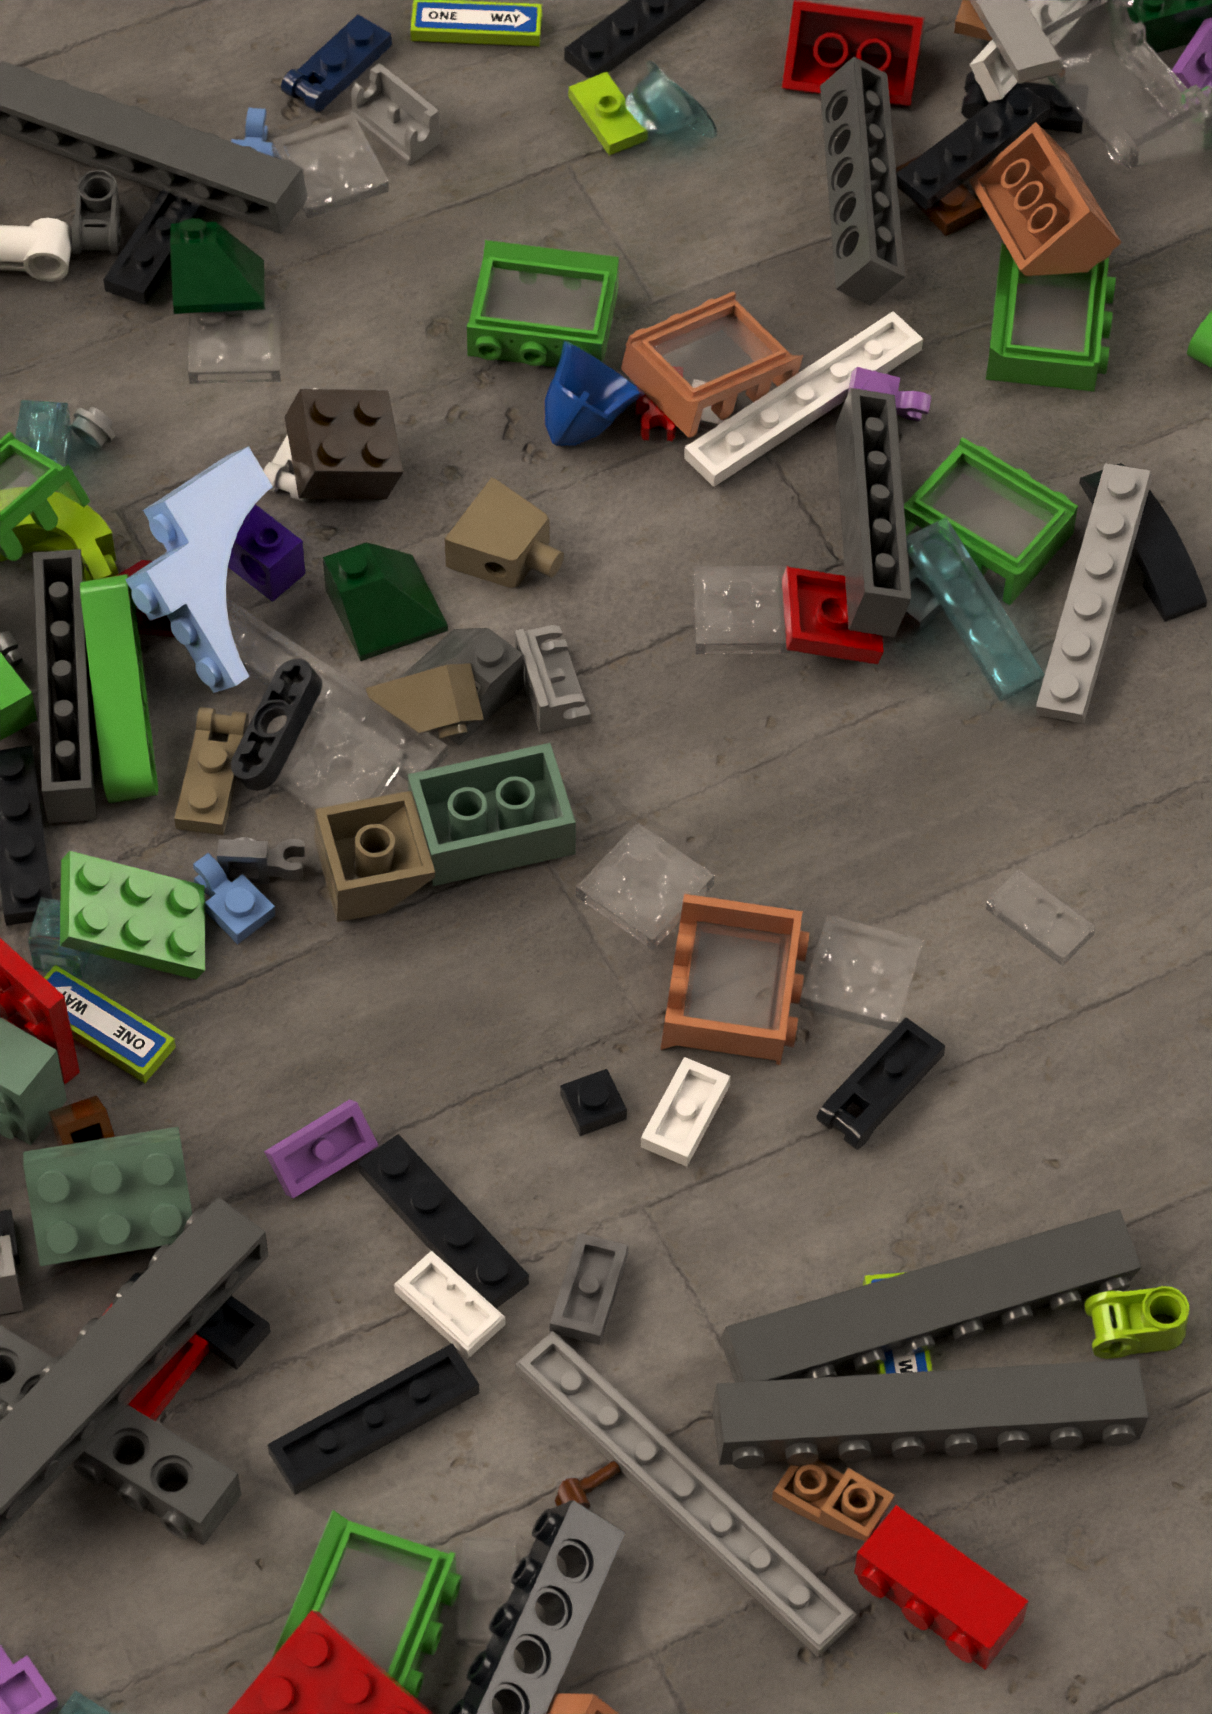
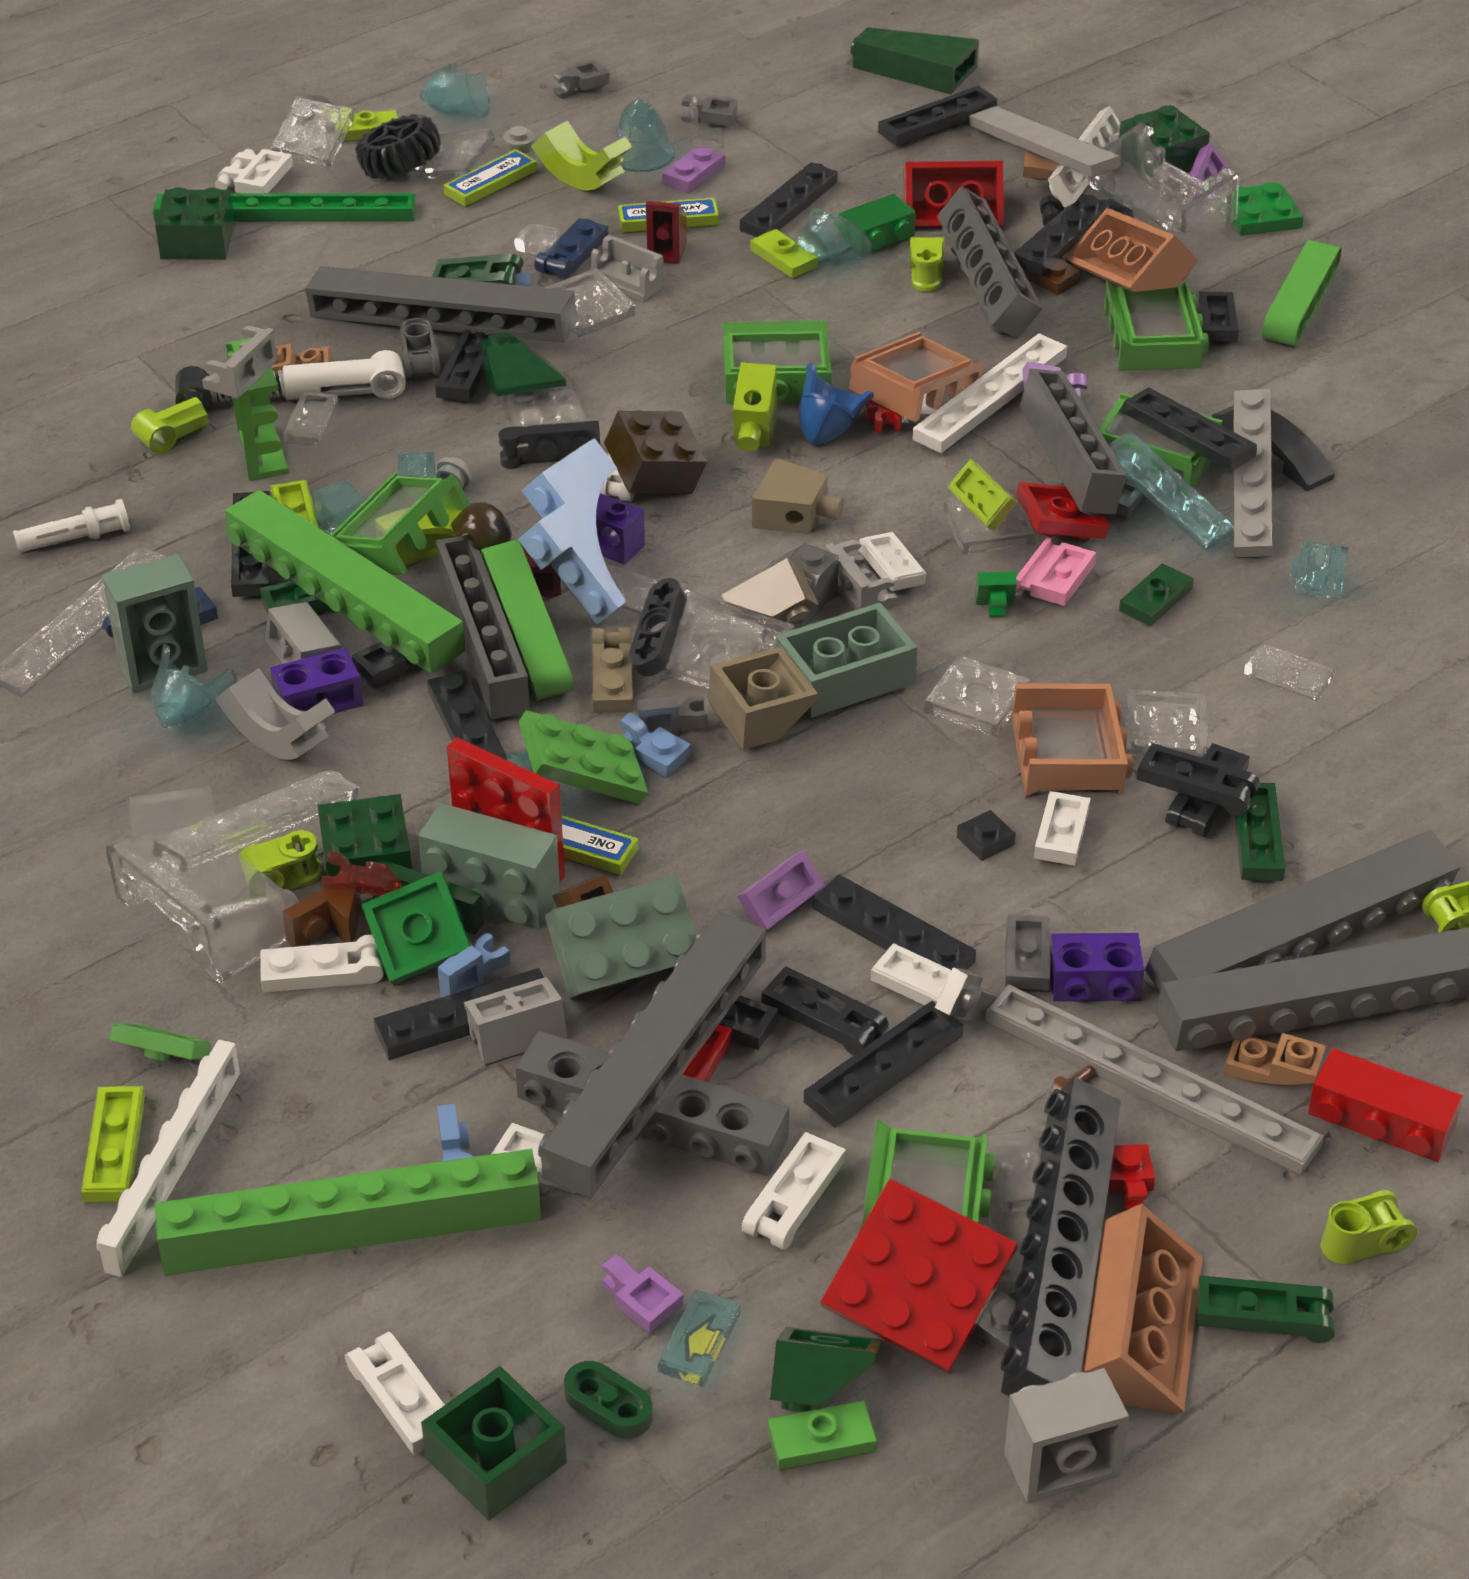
camera: 10 degrees left, 15 degrees down
(94, 544) = (484, 524): none -> dark brown hair
(197, 99) = (481, 268): none -> dark green plate
(222, 397) = (544, 442): none -> black plate
(222, 1576) = (794, 1190): none -> white plate
(294, 43) = (536, 238): none -> clear plate
(325, 1329) = (824, 1009): none -> black plate
(381, 598) = (708, 548): dark green slope -> none
(457, 65) = (666, 230): none -> dark red slope
(487, 1344) = (963, 994): none -> flat silver plate
(489, 387) = (755, 423): none -> lime torso
(599, 658) = (892, 561): none -> white plate
(615, 1623) = (1132, 1174): none -> red plate
(664, 1315) = (1096, 967): none -> dark purple brick
(712, 729) = (996, 591): none -> green tile
(732, 582) = (982, 494): none -> lime plate
(740, 85) = (883, 220): none -> green brick
(786, 161) = (926, 262): none -> lime piece
(798, 708) = (1056, 571): none -> bright pink plate
(864, 1075) = (1199, 778): none -> black plate
(915, 762) = (1156, 594): none -> dark green plate
(922, 1157) = (1260, 837): none -> dark green plate
(1025, 521) = (1190, 429): none -> black plate
(1131, 763) = (1319, 569): none -> clear light blue brick
(1138, 314) = (1218, 316): none -> black plate

